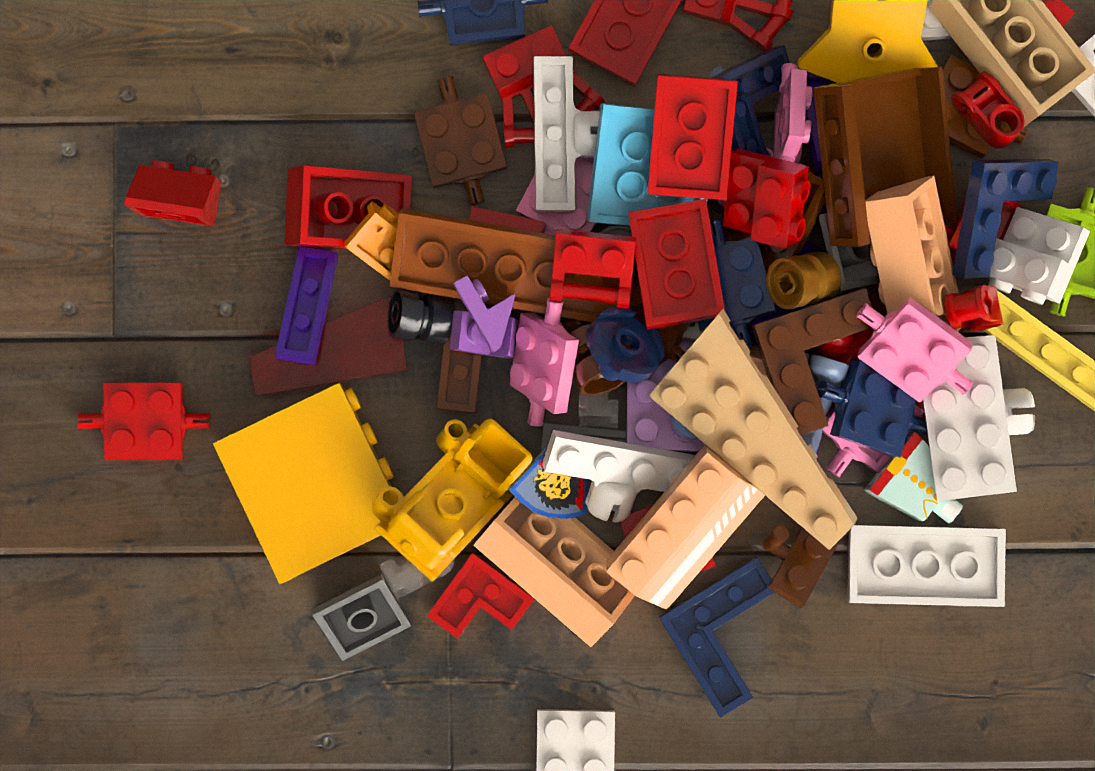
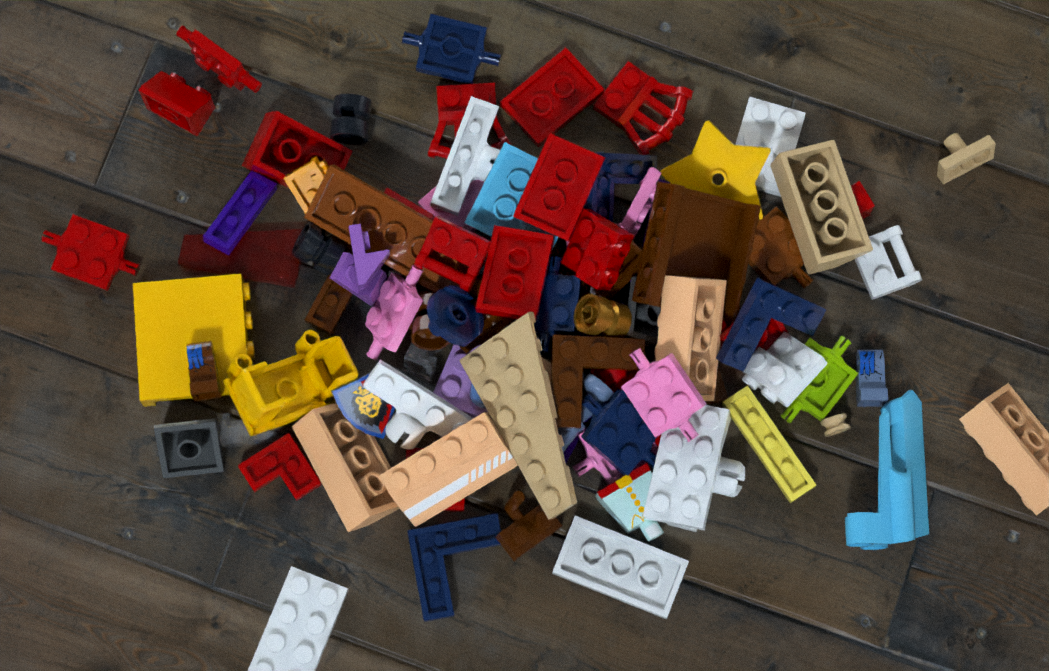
camera: 20 degrees right, 10 degrees down
(190, 123) = (213, 57): none -> red plate
(342, 521) = (203, 371): none -> reddish brown leg
(397, 151) = (350, 120): none -> black wheel
(460, 140) = (397, 139): reddish brown plate -> none
(974, 308) = (722, 387): red piece -> none
(988, 107) = (786, 247): red piece -> none

